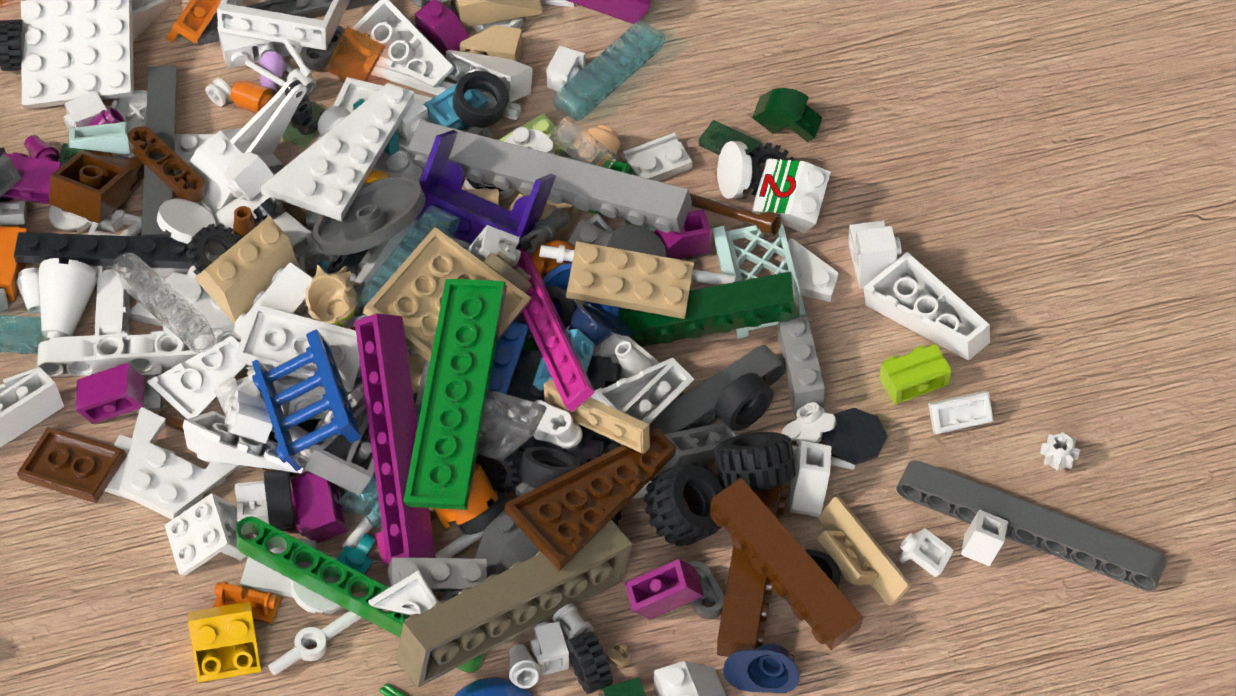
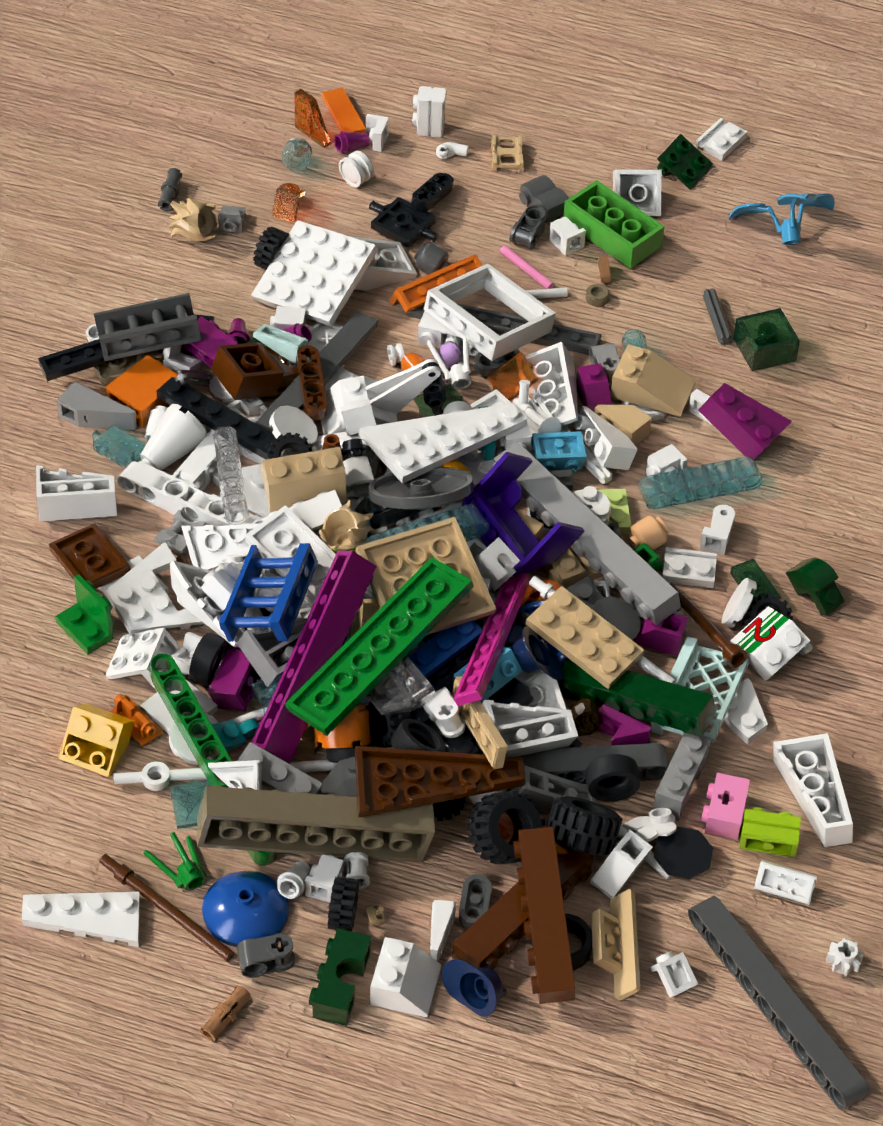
camera: 30 degrees right, 5 degrees down
(39, 222) = (195, 378): none -> dark grey axle
(110, 393) = (151, 521): magenta brick -> none
(121, 525) = (89, 619): none -> green bracket
(366, 649) = (187, 802): none -> clear light blue piece
(429, 89) = (547, 425): none -> white piece
(487, 82) = (572, 466): black tyre -> none
(502, 265) = (488, 572): dark tan plate -> none
(544, 230) = (551, 569): dark grey pin -> none
(581, 144) = (629, 522): clear brick -> none
(631, 359) = (541, 694): white cone -> none
(662, 113) = (717, 537): none -> white leg
(664, 589) = (440, 881): magenta brick -> none
(674, 349) = (585, 716): none -> rock
(687, 630) = (441, 922): none -> white slope
(720, 349) = (622, 727): none -> magenta slope
(859, 371) = (726, 806): none -> bright pink brick
(872, 249) = (805, 717): white brick -> none
(984, 544) = (727, 987): white brick -> none

